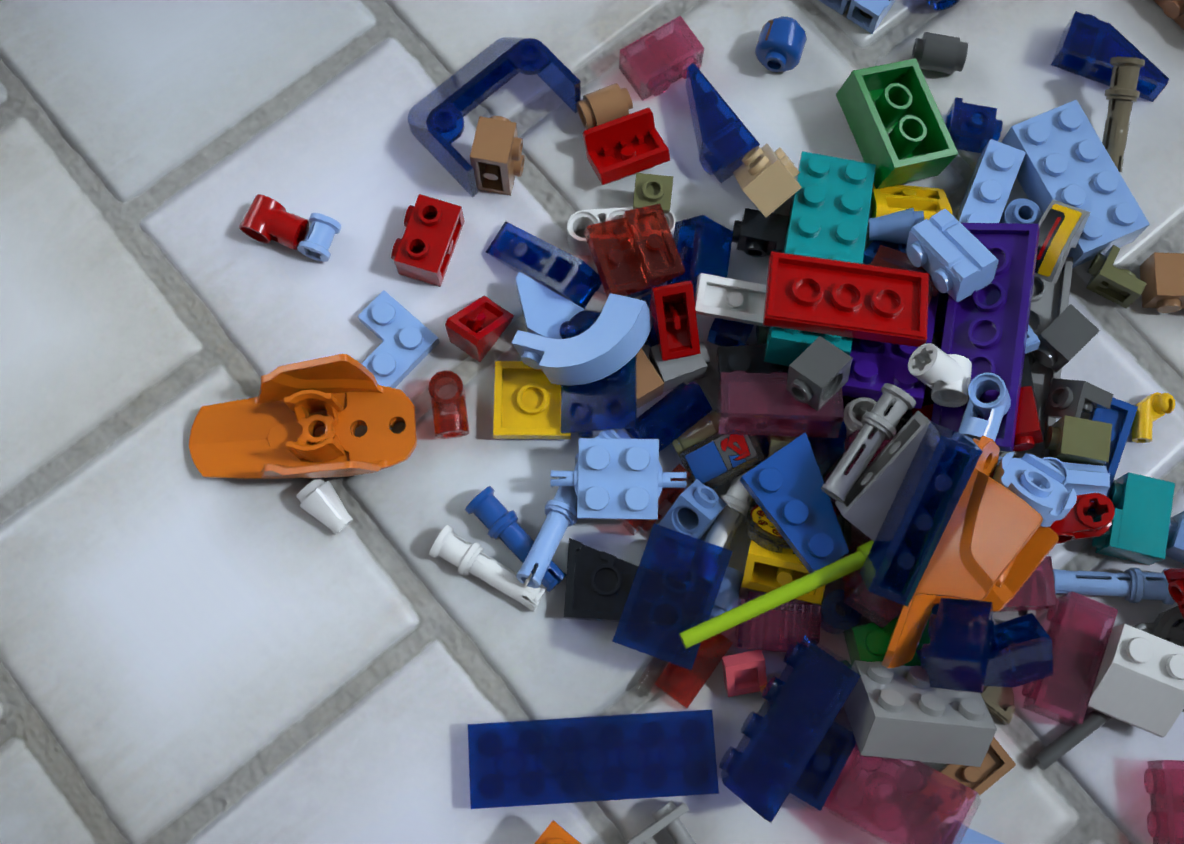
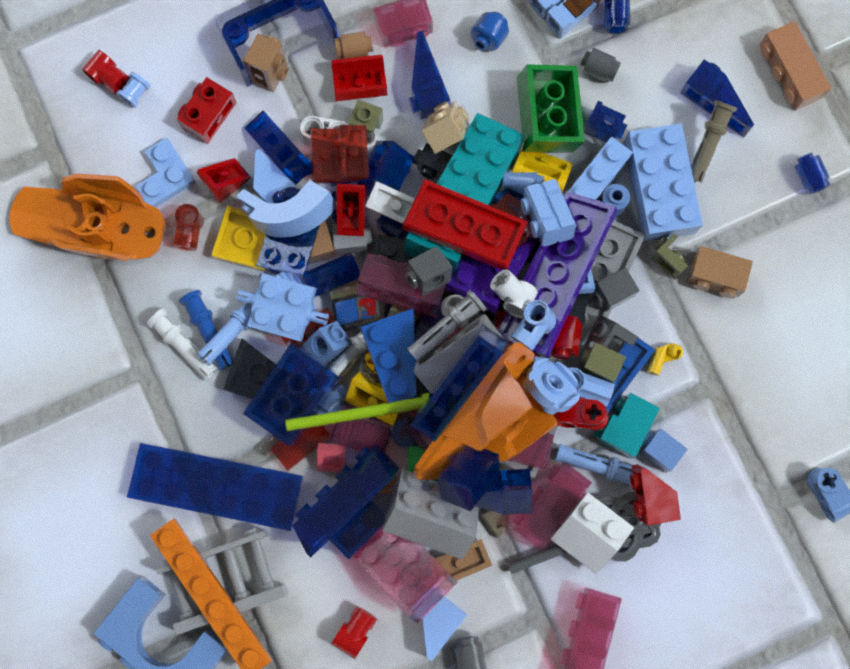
camera: 15 degrees right, 5 degrees up
(324, 504) = (87, 273): white cone -> none
(1059, 232) = (630, 218): slope -> none

